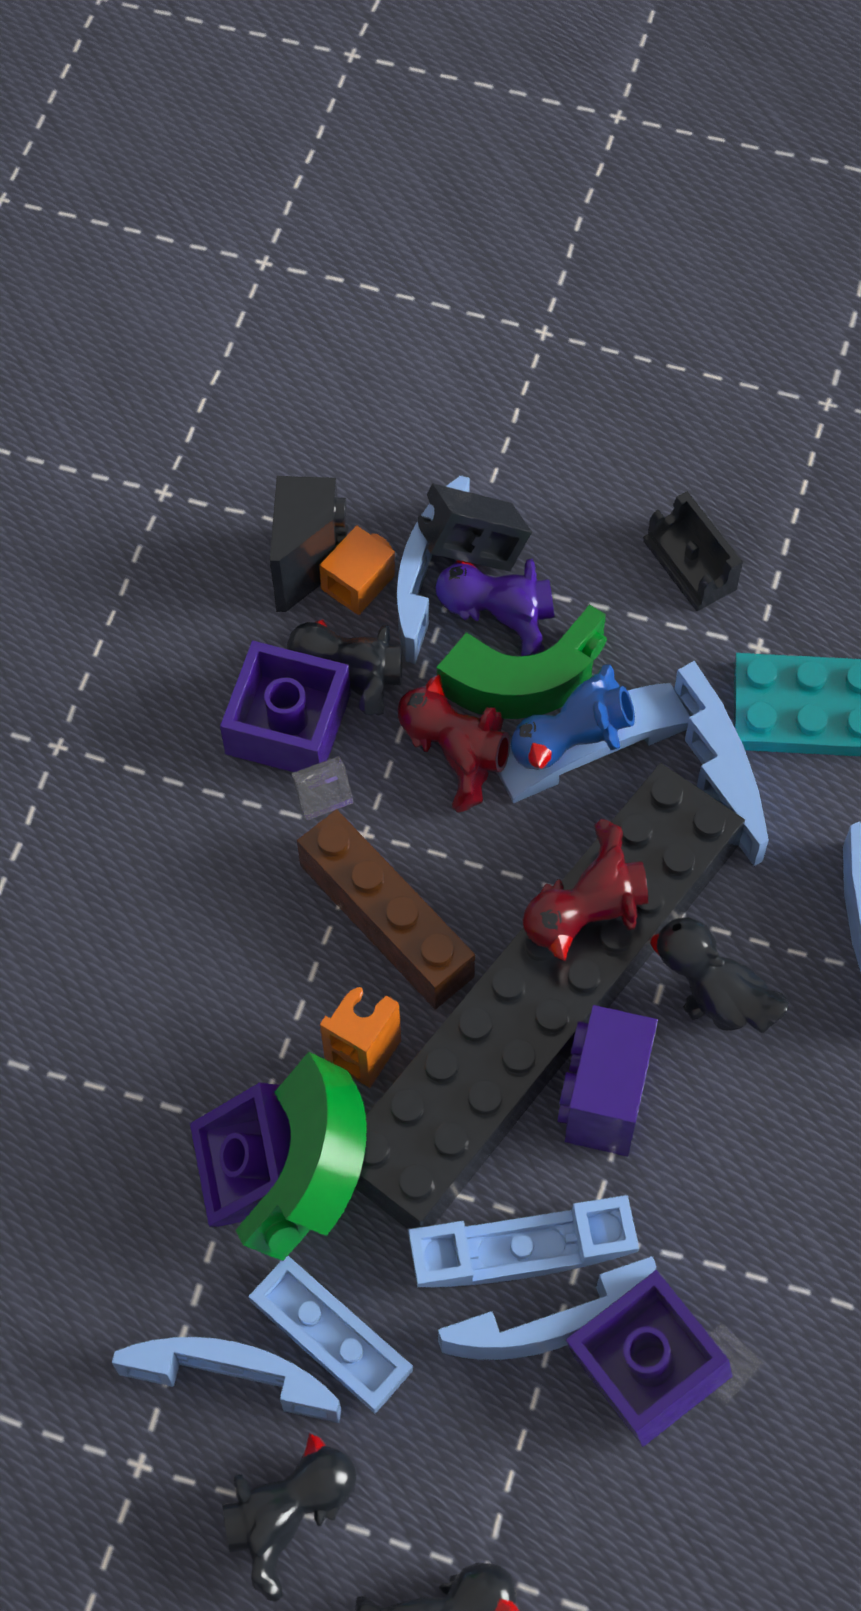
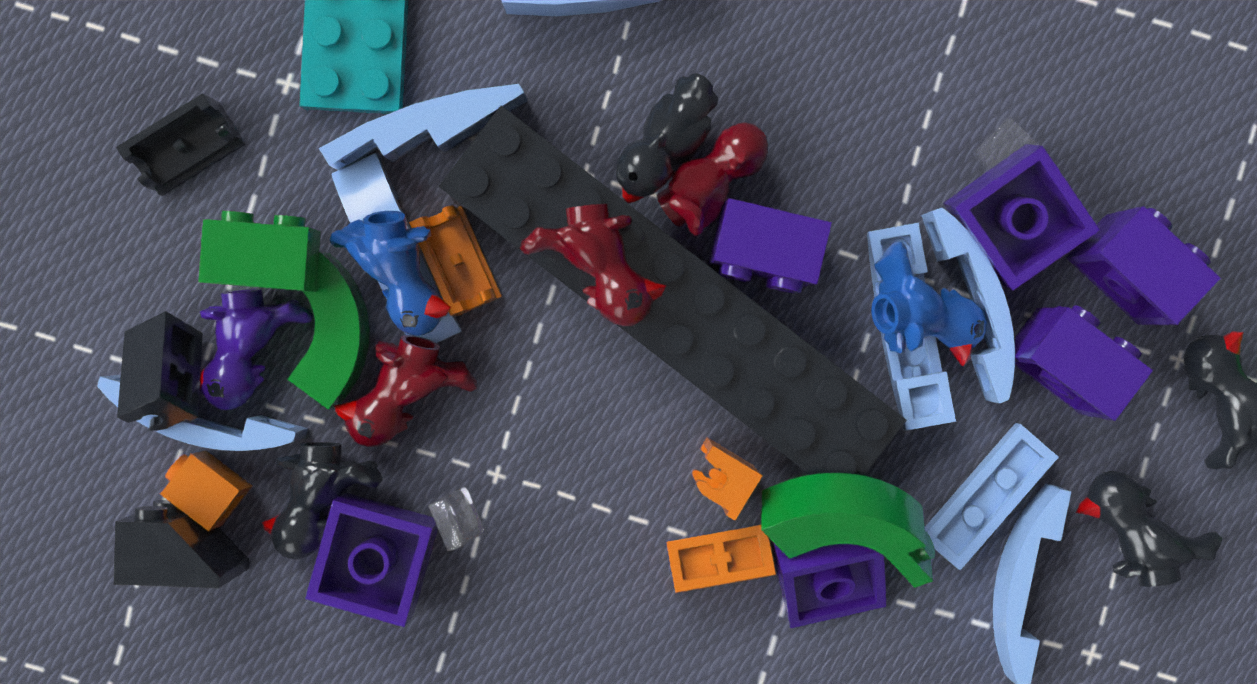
camera: 90 degrees left, 25 degrees up
(268, 1031) = (720, 558): none -> orange hinge
(386, 909) = (584, 457): reddish brown brick -> none
(485, 1415) = (1079, 361): none -> dark purple brick
(540, 1237) = (913, 310): none -> blue animal
(583, 789) = (457, 261): none -> orange hinge
(588, 603) = (259, 254): none -> green brick
(595, 1493) = (1145, 266): none -> dark purple brick
(705, 1054) = (702, 185): none -> dark red animal

